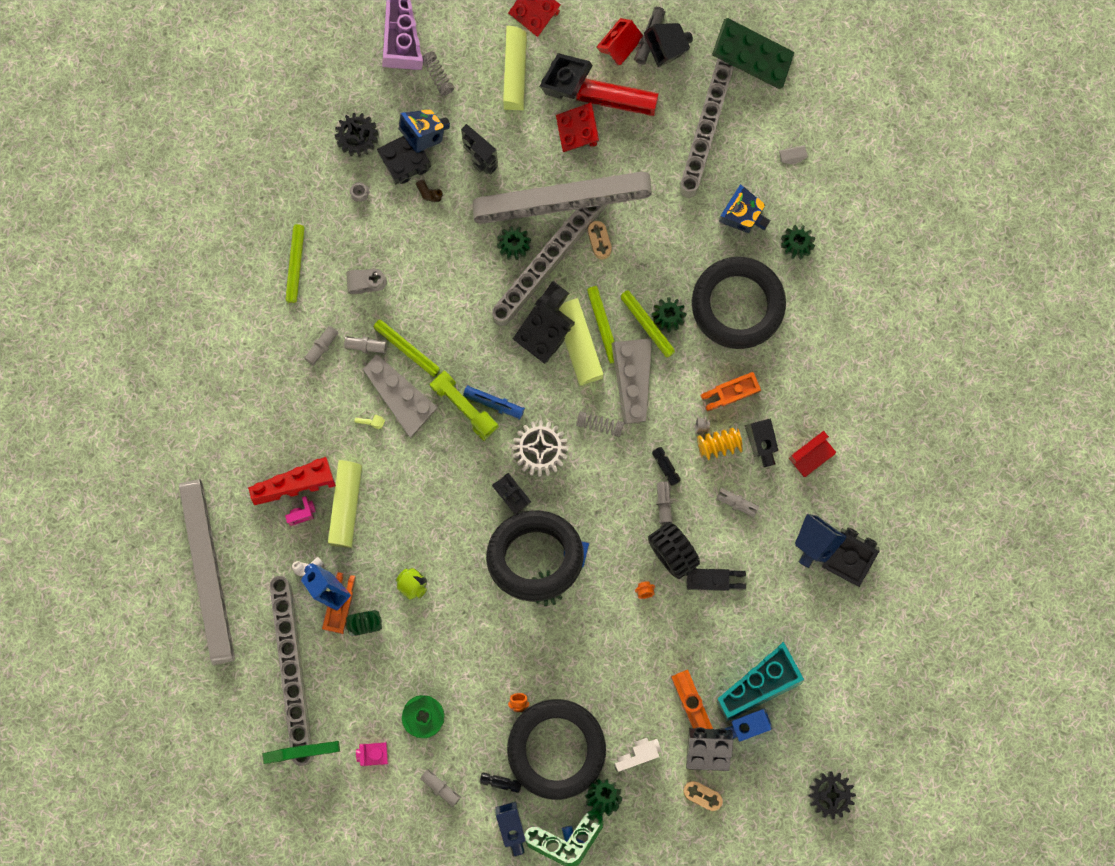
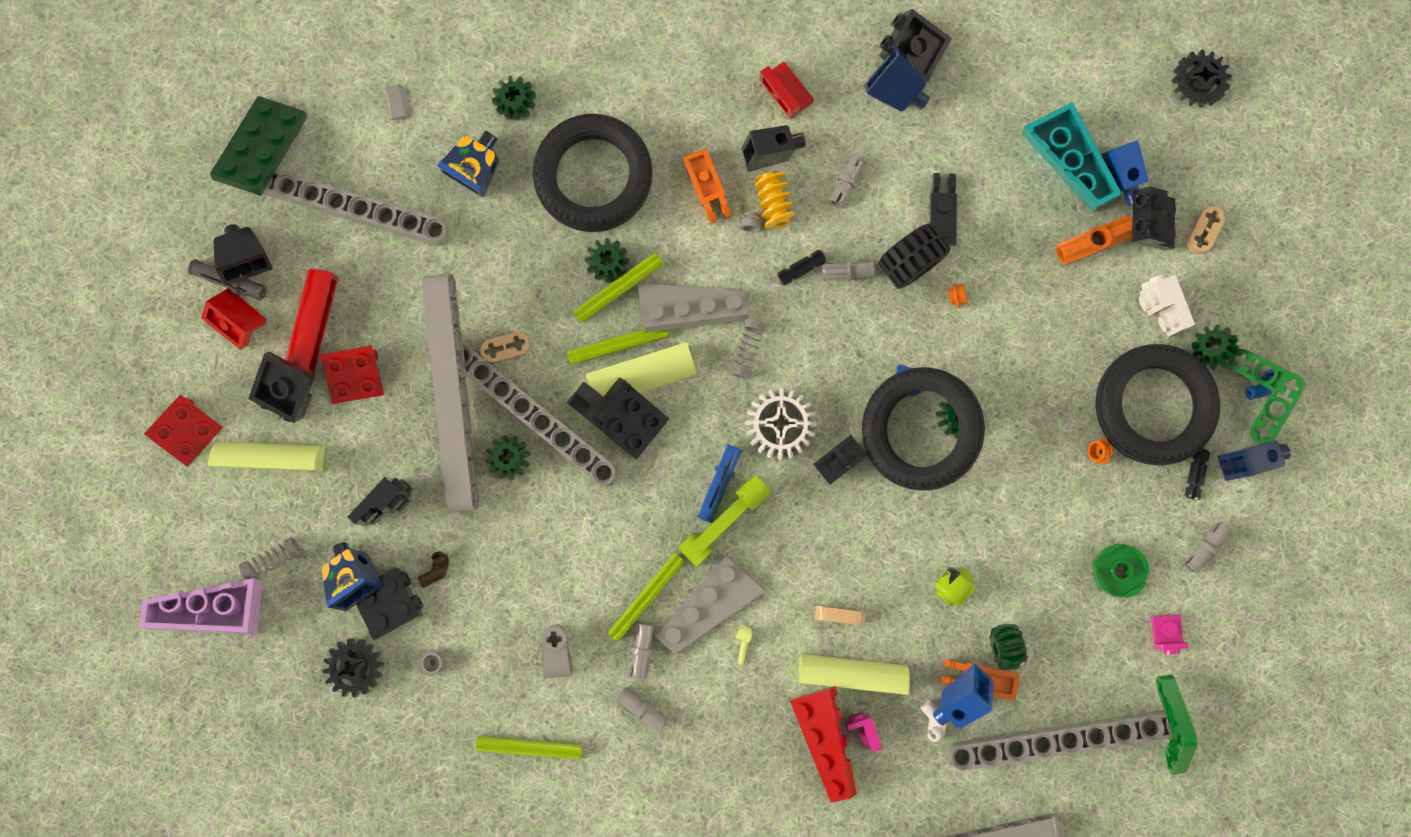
camera: 85 degrees left, 5 degrees up
(390, 494) = (840, 615): none -> tan beam

